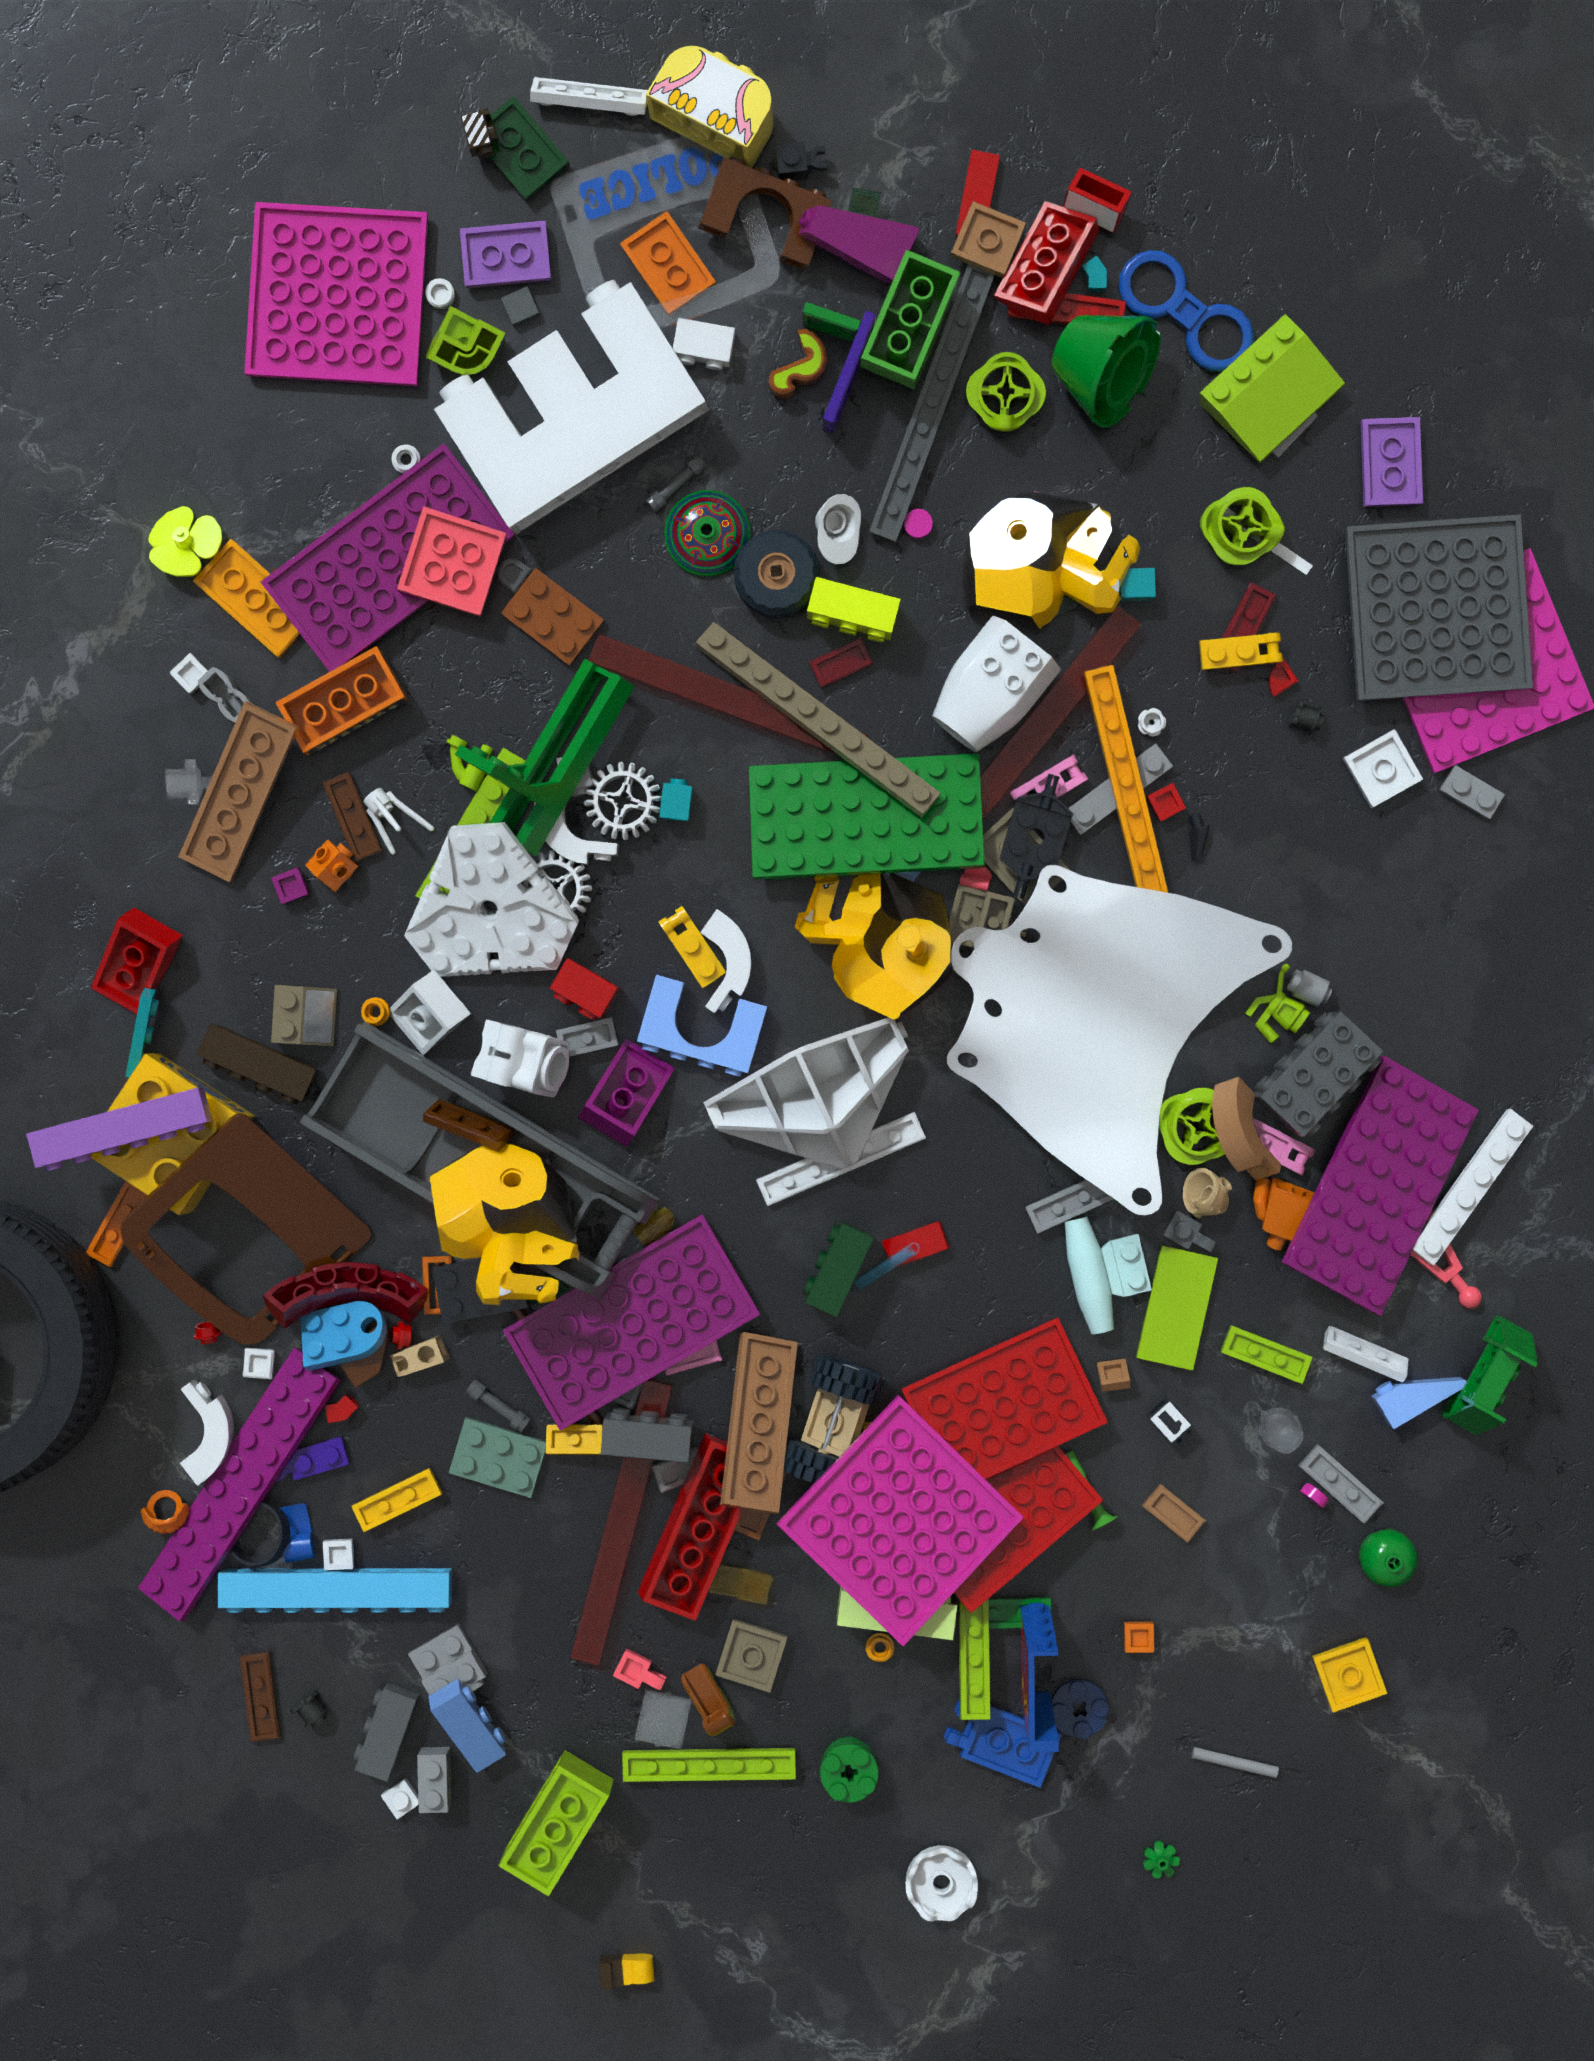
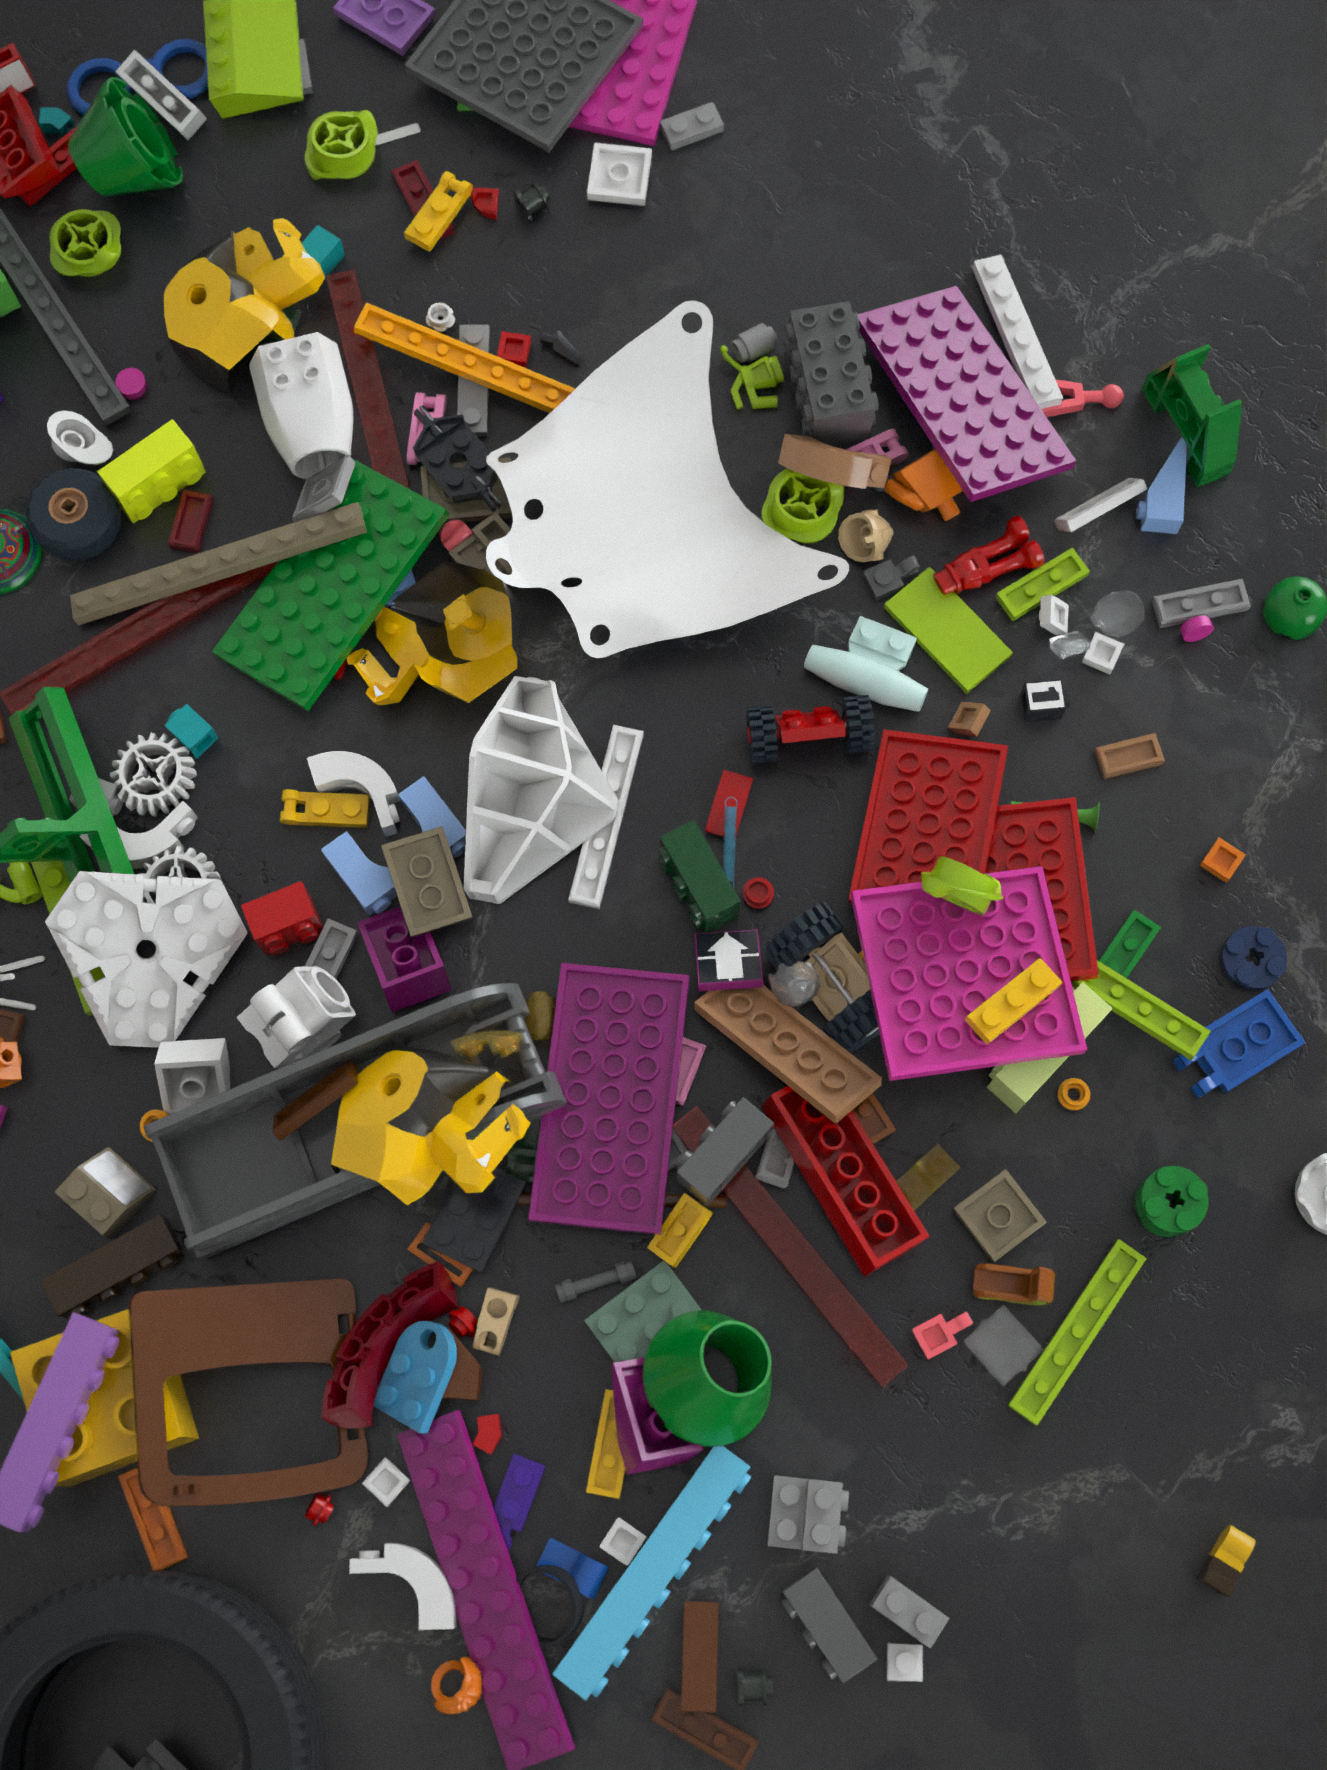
camera: 55 degrees left, 15 degrees down
(303, 1660) = (700, 1657): none -> reddish brown tile
(435, 1515) = (640, 1430): none -> magenta slope
(468, 1725) = (877, 1532): medium blue brick -> none
(469, 1517) = (686, 1394): none -> green cone
(556, 1823) = (1034, 1515): lime brick -> none
(603, 1226) = (499, 1041): none -> clear yellow slope
(687, 1073) = (426, 881): none -> dark tan plate
(795, 1331) = (728, 960): none -> tile
(805, 1399) = (795, 983): none -> clear hair
(863, 1314) = (758, 893): none -> red plate
(899, 1571) = (1013, 1001): none -> yellow plate
(934, 754) = (324, 489): none -> light grey tile
(954, 1477) = (961, 885): none -> lime piece
(1016, 1264) = (822, 723): none -> plate
(1037, 1640) = (1194, 960): blue panel -> none
(1065, 1205) = (790, 651): light grey plate -> none
(1175, 349) = (161, 95): none -> white brick
(1230, 1409) = (1069, 644): none -> clear tile
(1237, 1293) = (972, 568): none -> red piece
(1242, 1438) = (1103, 653): none -> white plate
(1246, 1380) = (1054, 615): none -> white plate

